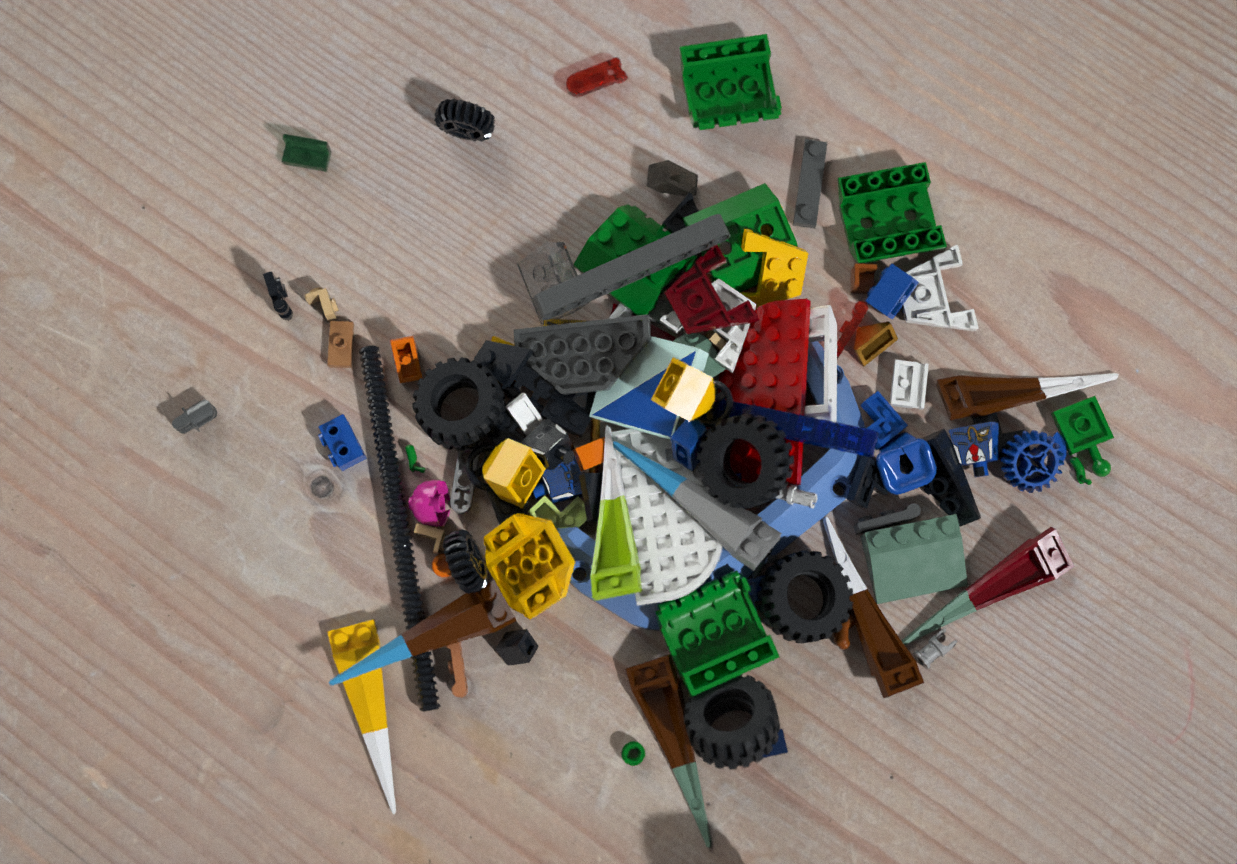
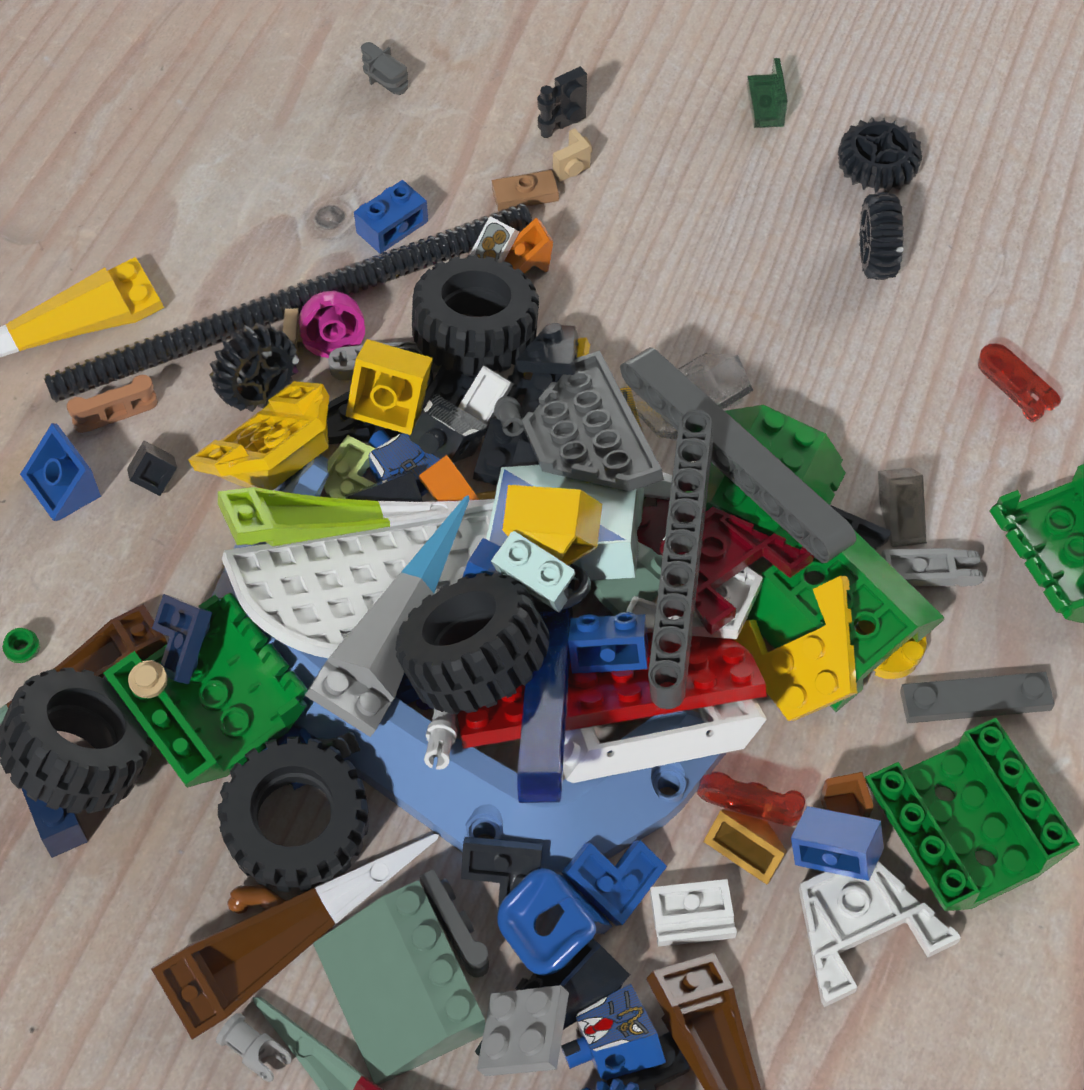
camera: 80 degrees right, 20 degrees down
(393, 83) = (879, 155): none -> black gear
(398, 381) = (495, 240): none -> tile
(412, 459) = (390, 299): green piece -> none
(458, 621) = (178, 394): reddish brown plate -> none
(508, 712) = (59, 475): none -> blue slope
(548, 401) = (508, 412): none -> dark grey pin
(677, 637) = (186, 629): none -> dark blue plate
(709, 667) = (147, 679): none -> tan plate
(718, 179) = (935, 566): none -> light grey hinge
(718, 410) = (535, 569): none -> light aqua bracket
(721, 328) = (693, 444): none -> dark grey beam
(749, 380) = (608, 643): none -> blue brick
(969, 494) = (523, 1031): none -> light grey plate

